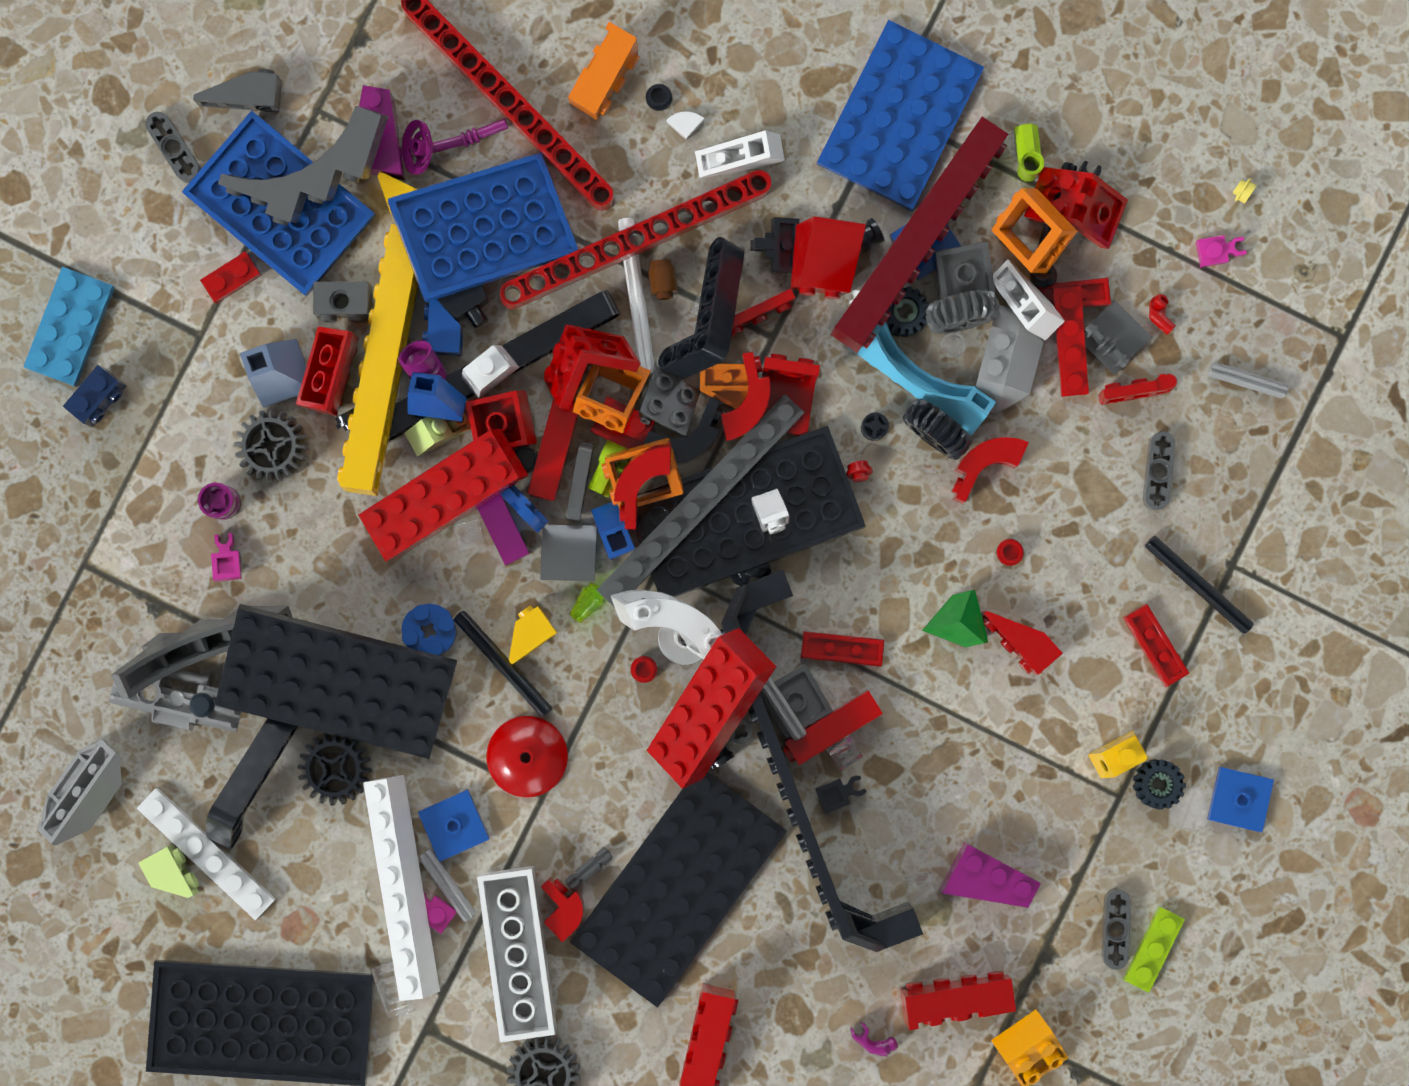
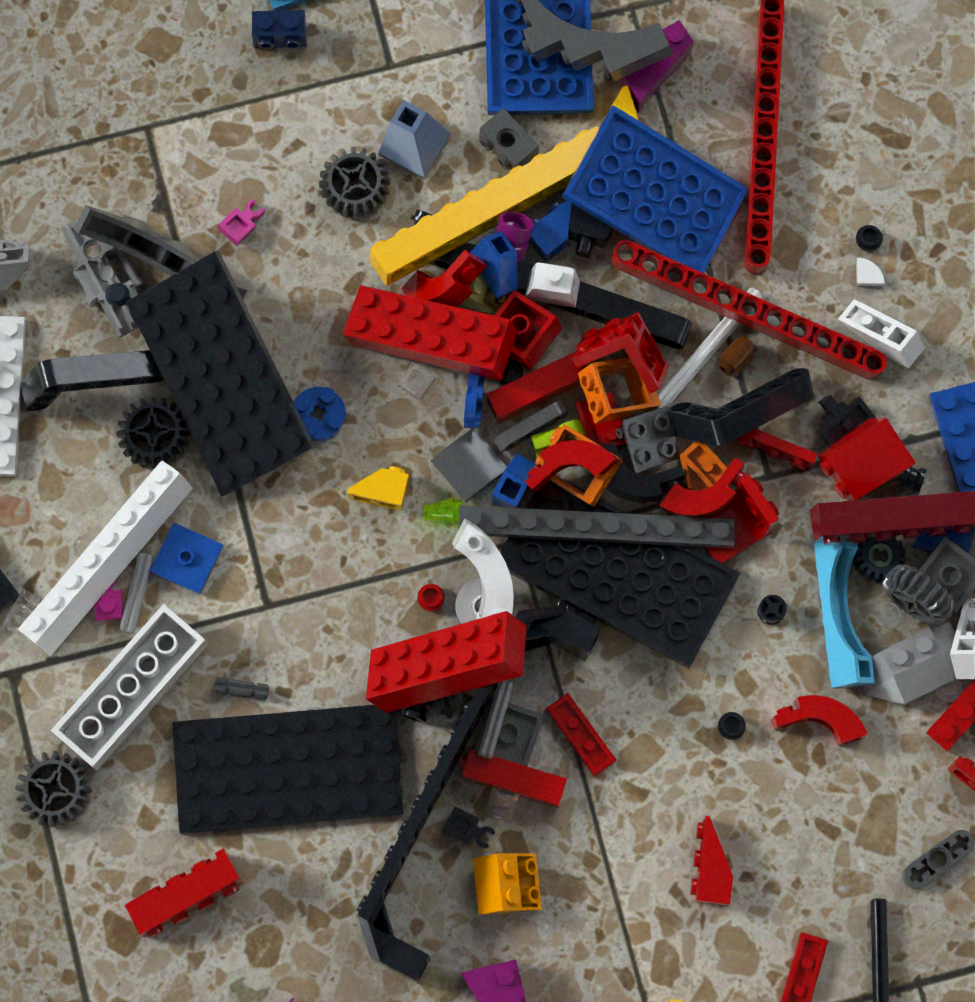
camera: 50 degrees right, 10 degrees down
(219, 501) = (280, 180): magenta wheel -> none
(230, 277) = (452, 50): red plate -> none
(327, 370) = (447, 174): red slope -> none
(422, 450) = (451, 286): none -> red arch
(425, 147) = (675, 103): magenta dish -> none
(502, 663) = (342, 484): black axle -> none
(503, 530) = (443, 402): magenta tile -> none
(546, 750) = (291, 586): red dish -> none
(570, 909) = (196, 701): red brick -> none
(605, 72) = (851, 182): orange wedge -> none
(771, 511) = (635, 583): white slope -> none
(859, 471) = (727, 627): red plate -> none
(905, 800) = (507, 883): none -> light orange slope
(932, 533) = (731, 725): none -> black plate
(937, 429) = (813, 656): black gear -> none
(959, 621) = (682, 805): green slope -> none
(1009, 552) = (770, 798): red plate -> none

